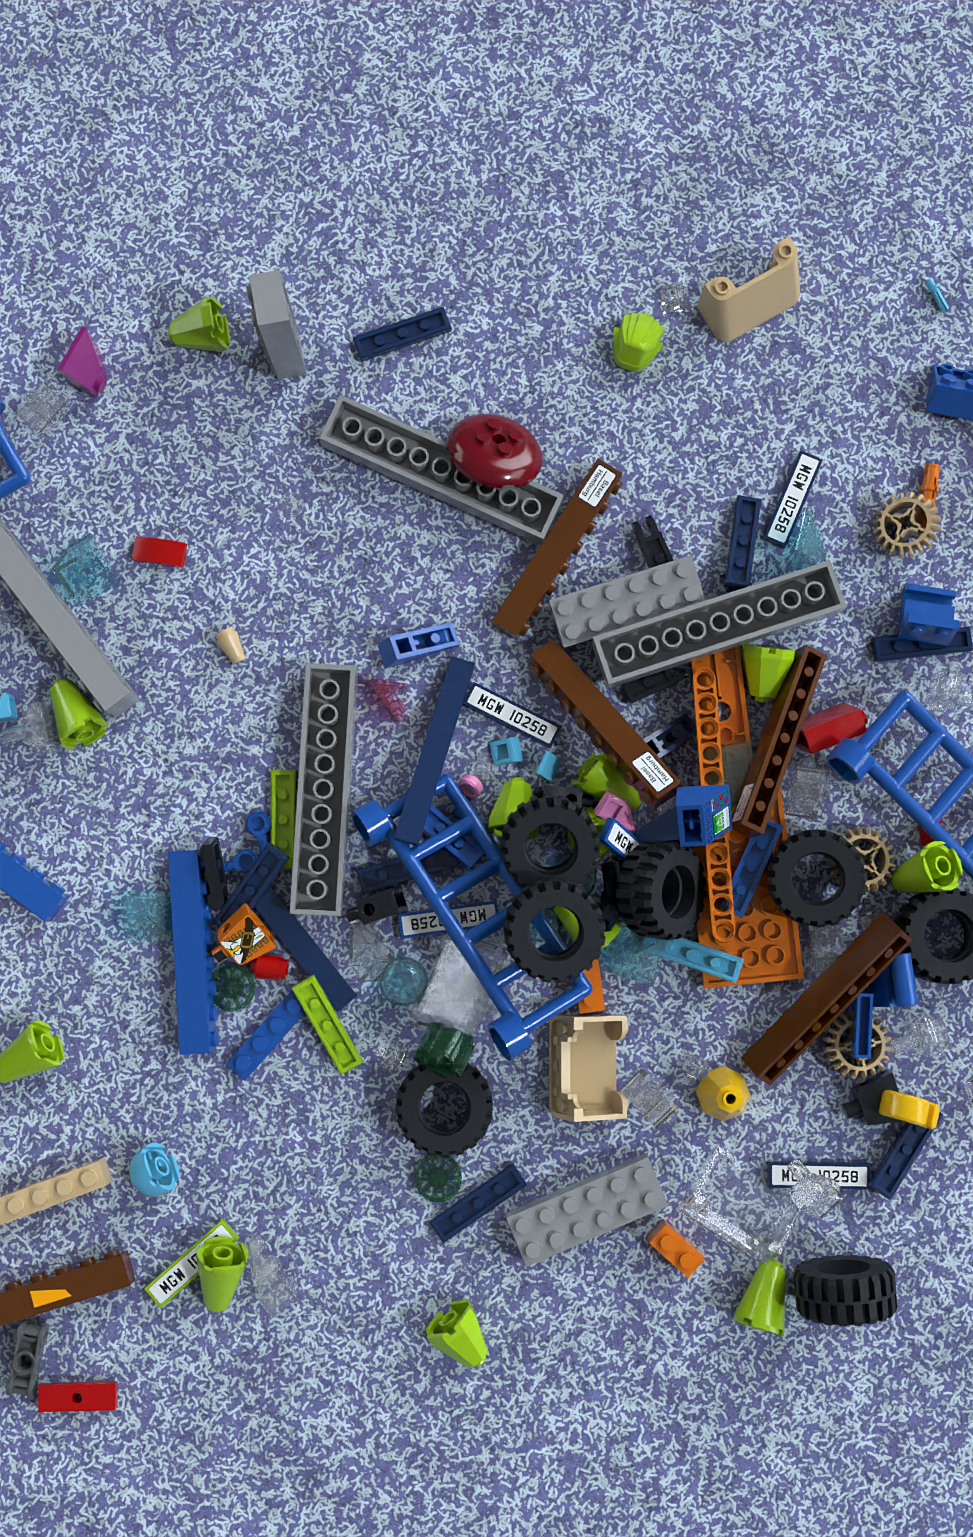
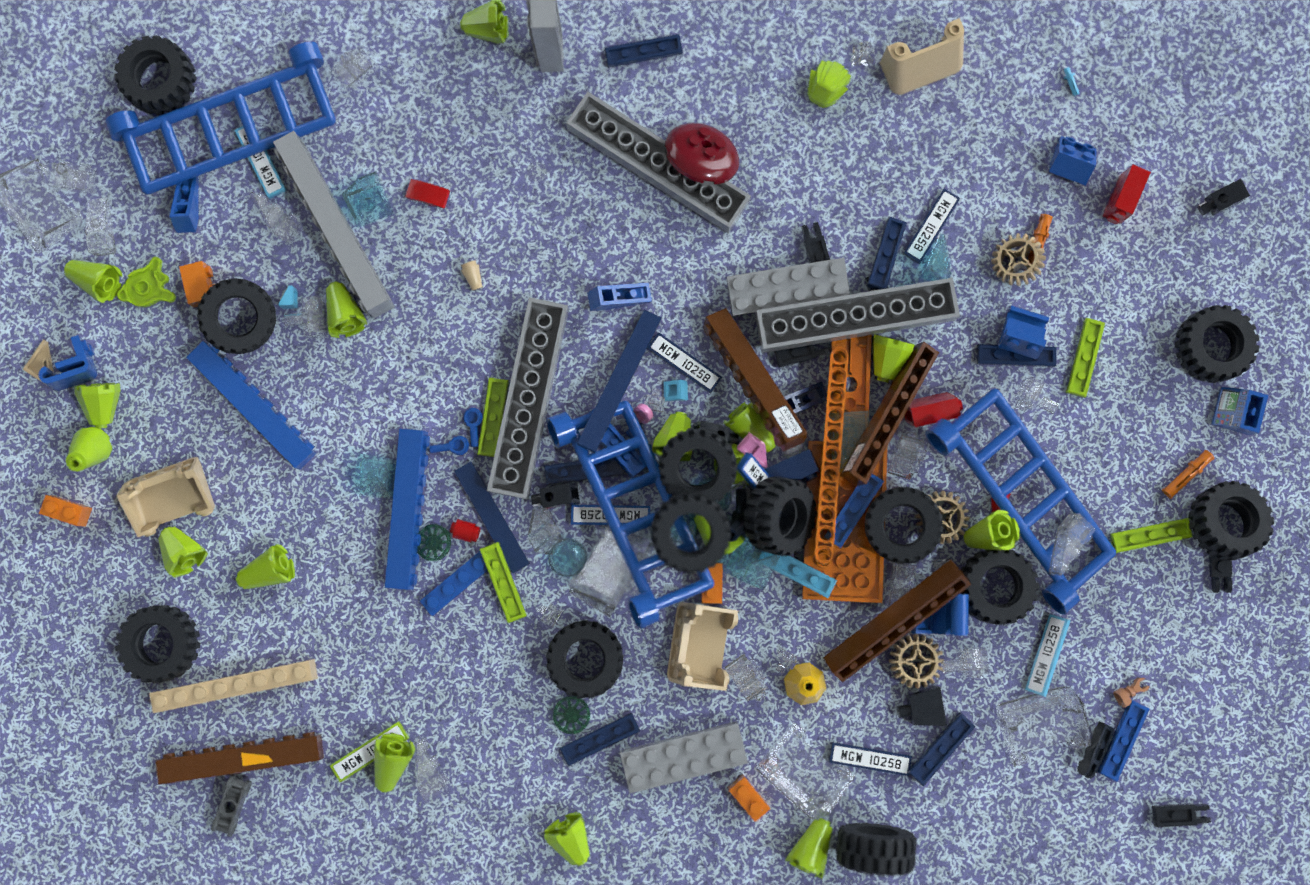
camera: 10 degrees right, 0 degrees up
(62, 1396) = (253, 839): red tile -> none
(84, 365) = (390, 38): magenta slope -> none
(152, 1171) = (350, 675): medium azure cylinder -> none
(215, 873) = (433, 450): black hinge -> none
(243, 937) = (447, 504): torso -> none
(255, 882) = (459, 468): dark blue tile -> none
(387, 691) = (589, 329): clear pink slope -> none
(444, 1050) = (591, 614): clear green brick -> none
(548, 766) = (706, 407): medium azure slope -> none
(557, 549) = (739, 238): reddish brown brick -> none
(703, 814) = (821, 460): blue slope -> none
(813, 1192) = (863, 770): clear brick -> none
(862, 1026) = (922, 646): blue piece -> none
(909, 1109) = (949, 717): yellow animal -> none

